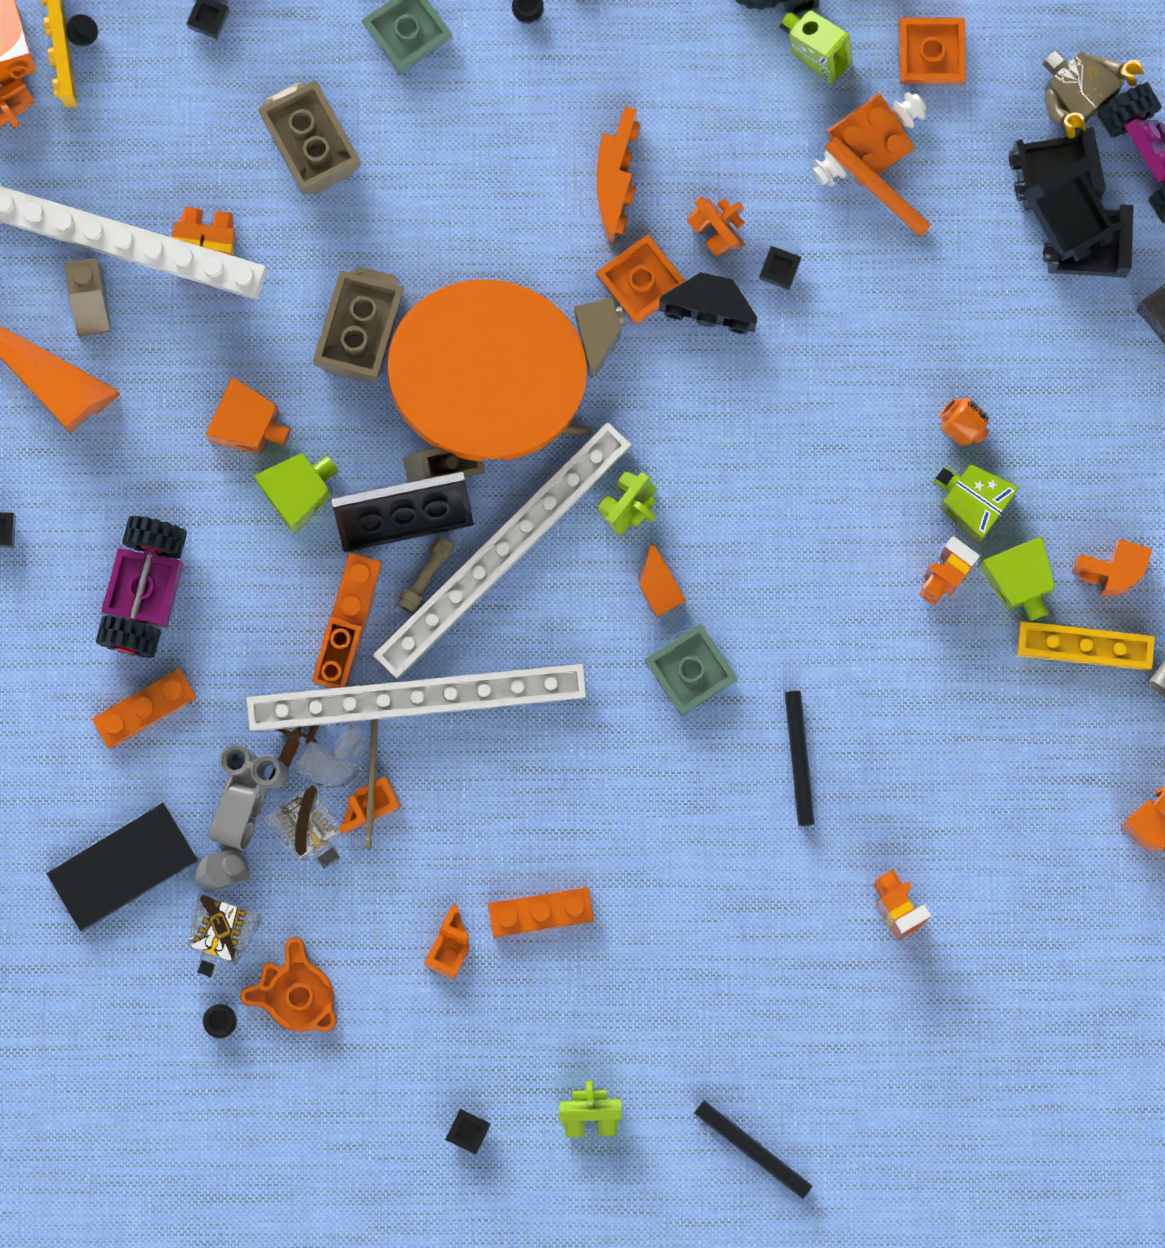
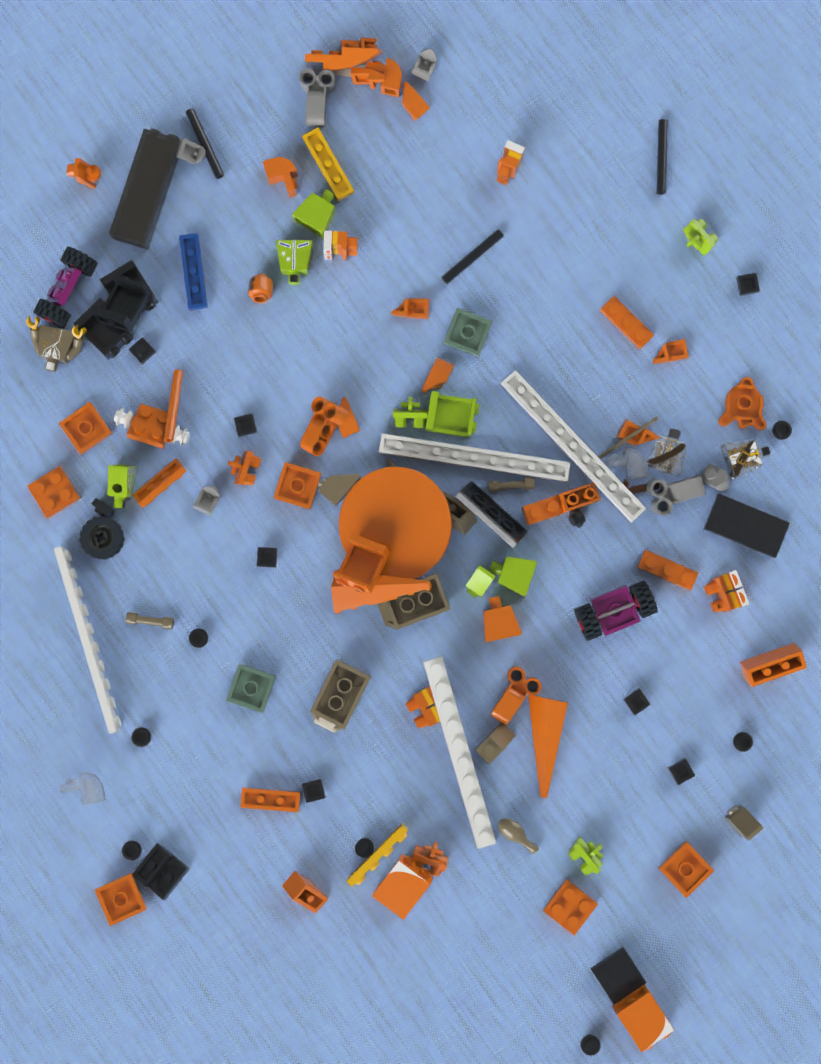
camera: 125 degrees left, 5 degrees up
(50, 769) = (729, 600): none -> orange hips
(133, 371) = (513, 696): none -> orange piece
(311, 631) = (576, 518): none -> black plate
(322, 431) = (479, 582): none -> lime slope
(433, 257) = (385, 589): none -> orange wedge
(461, 280) = (362, 564): none -> orange panel
(571, 170) = (267, 557): none -> black plate
(587, 561) = (451, 415): none -> lime panel
(613, 184) = (261, 531): orange slope -> none
(687, 410) = (351, 425): none -> orange slope
(701, 369) = (322, 425): none -> orange piece
(710, 144) = (207, 500): none -> light grey plate
(710, 302) = (285, 445): black slope -> none
(781, 97) = (159, 483): none -> orange plate
(782, 620) = (413, 308): none -> orange slope
(991, 201) = (142, 350): none -> black plate
(1057, 347) = (193, 271): none -> blue plate
(1095, 836) = (413, 102): none -> orange slope
(1140, 892) = (425, 64): none -> light grey plate

